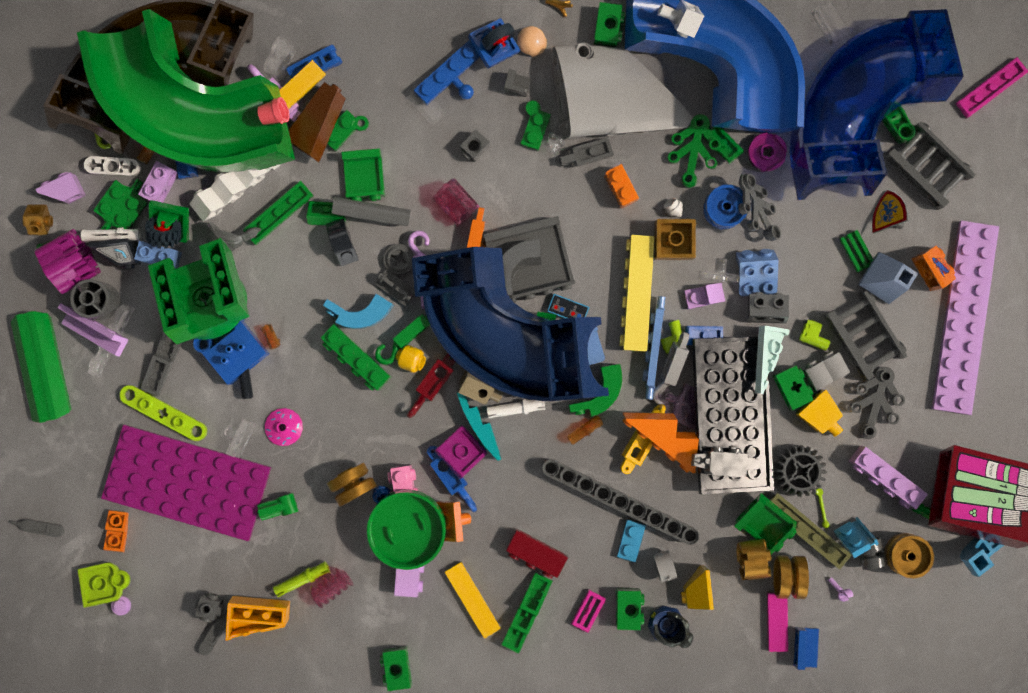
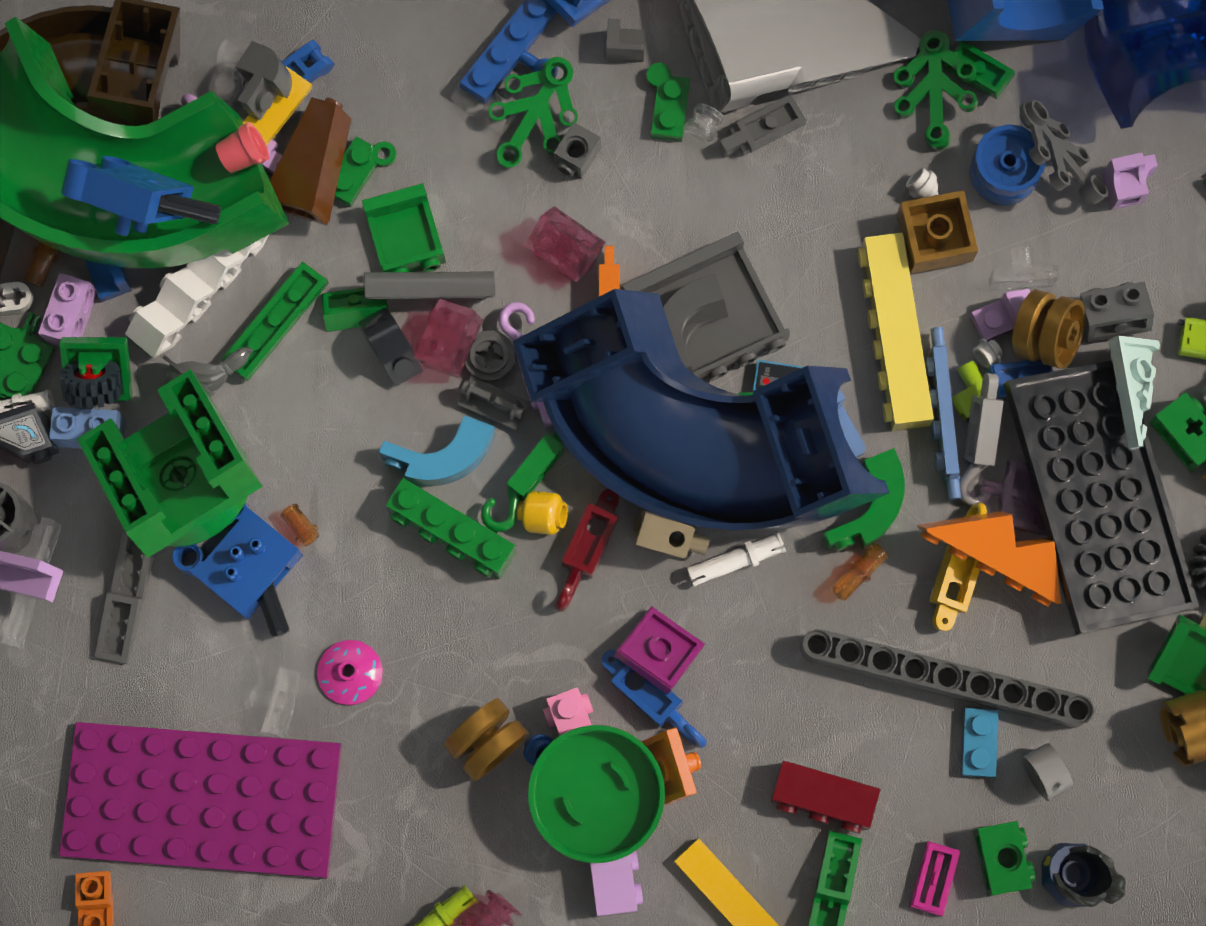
camera: 10 degrees left, 10 degrees down
(151, 406) = (118, 683): lime piece -> none
(201, 131) = (134, 194): none -> blue piece
(282, 506) = (374, 803): green piece -> none
(299, 66) = (265, 79): none -> dark grey brick
(376, 245) = (448, 338): none -> clear pink brick
(456, 114) = (536, 107): none -> green plant
(483, 431) = (689, 608): teal slope -> none
(621, 186) = (830, 167): orange brick -> none
(688, 317) = (987, 353): none -> white plate
(698, 590) = (1115, 799): yellow slope -> none
(725, 312) = (1048, 328): none -> pearl gold wheel
(725, 463) = (1108, 571): hinge -> none
(757, 271) = (1084, 256): medium blue bracket -> none
(767, 141) = (1053, 86): magenta plate -> none
(794, 229) = (1127, 179): none -> lavender brick

